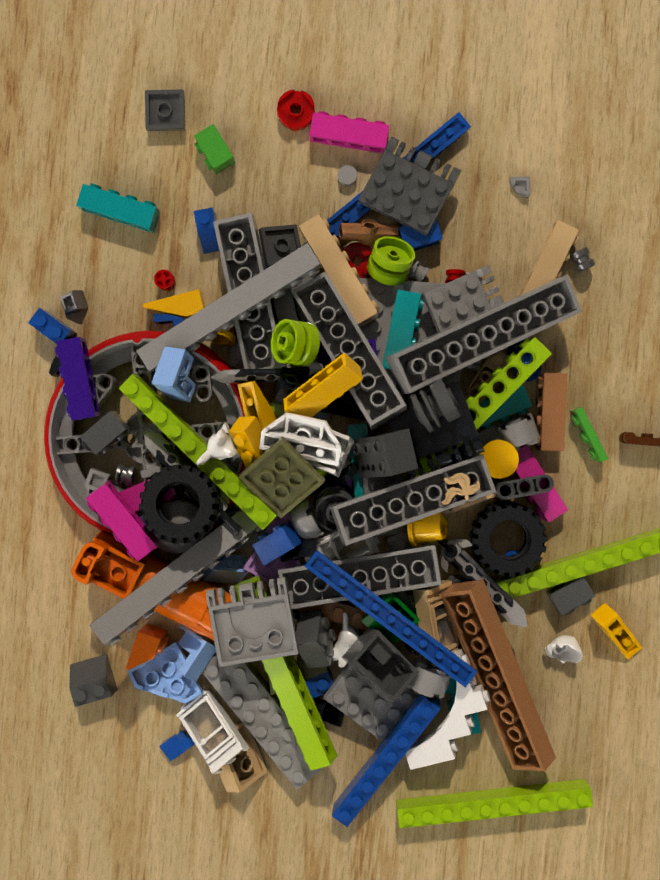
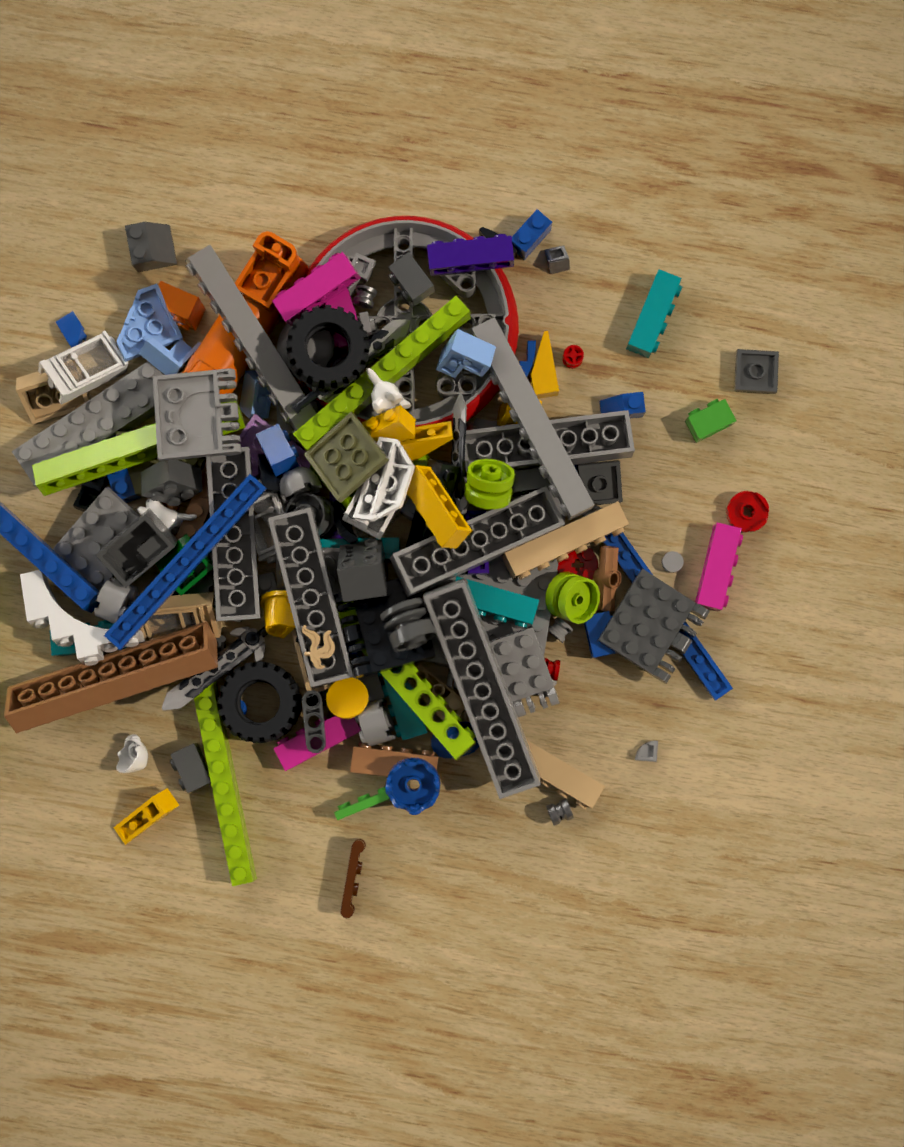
camera: 95 degrees right, 5 degrees down
(585, 392) = (413, 799): none -> blue plate

